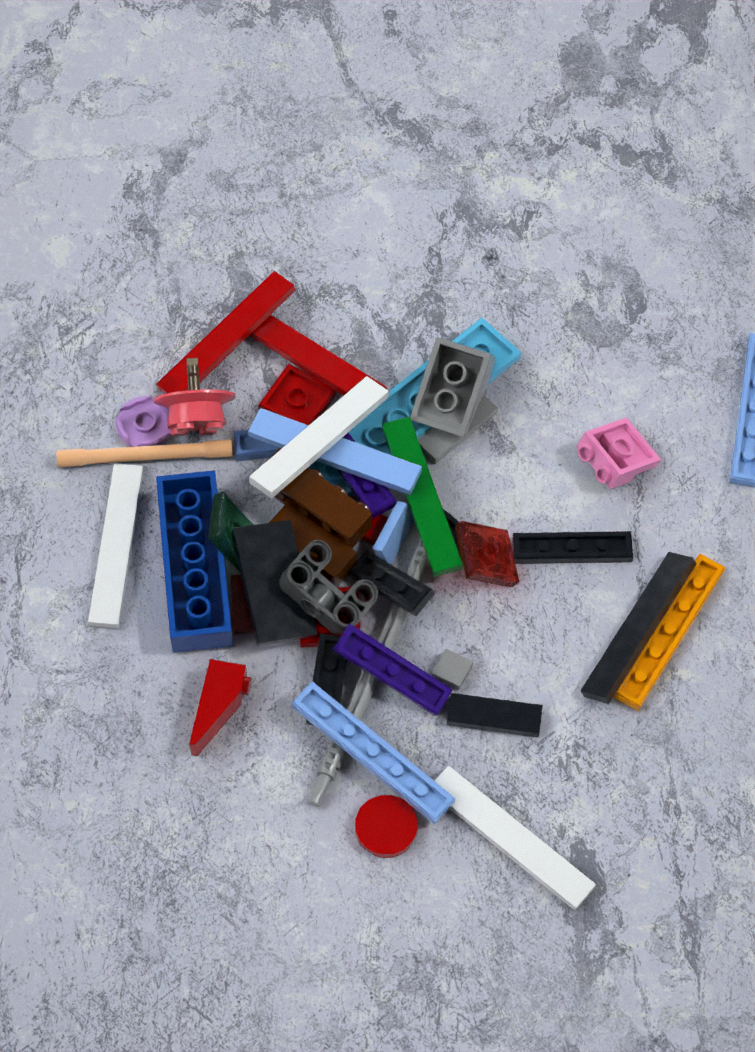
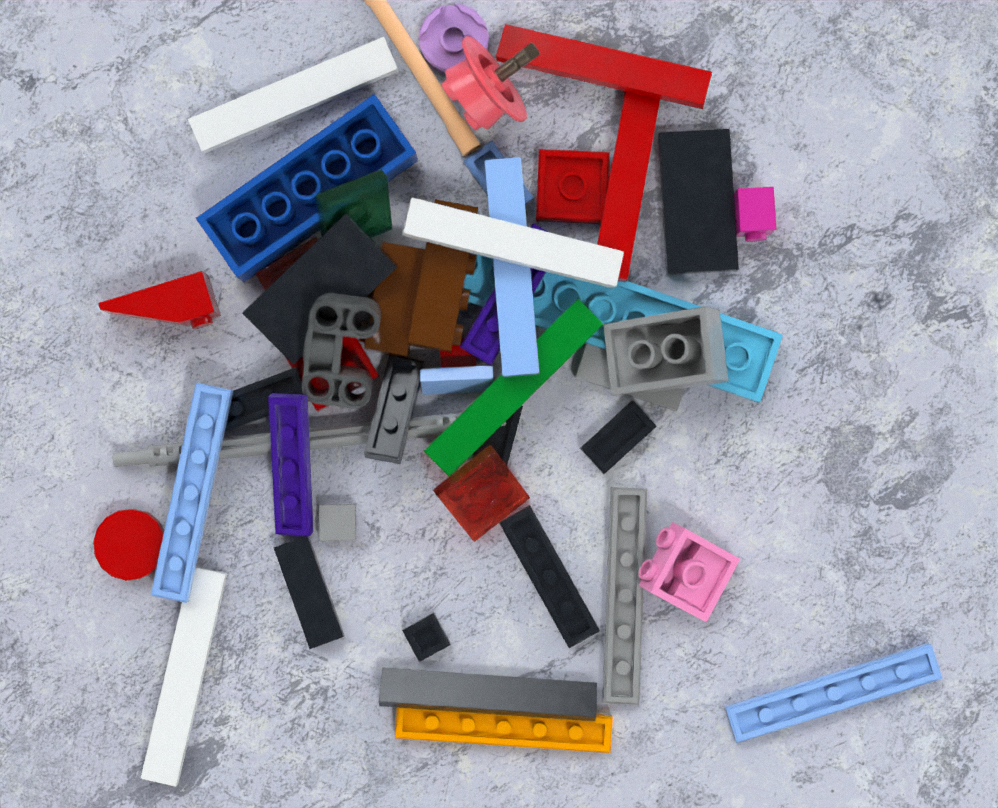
camera: 60 degrees right, 25 degrees up
(357, 328) = (698, 201): none -> black tile
(386, 296) = (755, 213): none -> dark pink brick
(495, 455) = (618, 437): none -> black tile
(573, 651) = (426, 637): none -> black tile
(613, 505) = (624, 596): none -> light grey tile

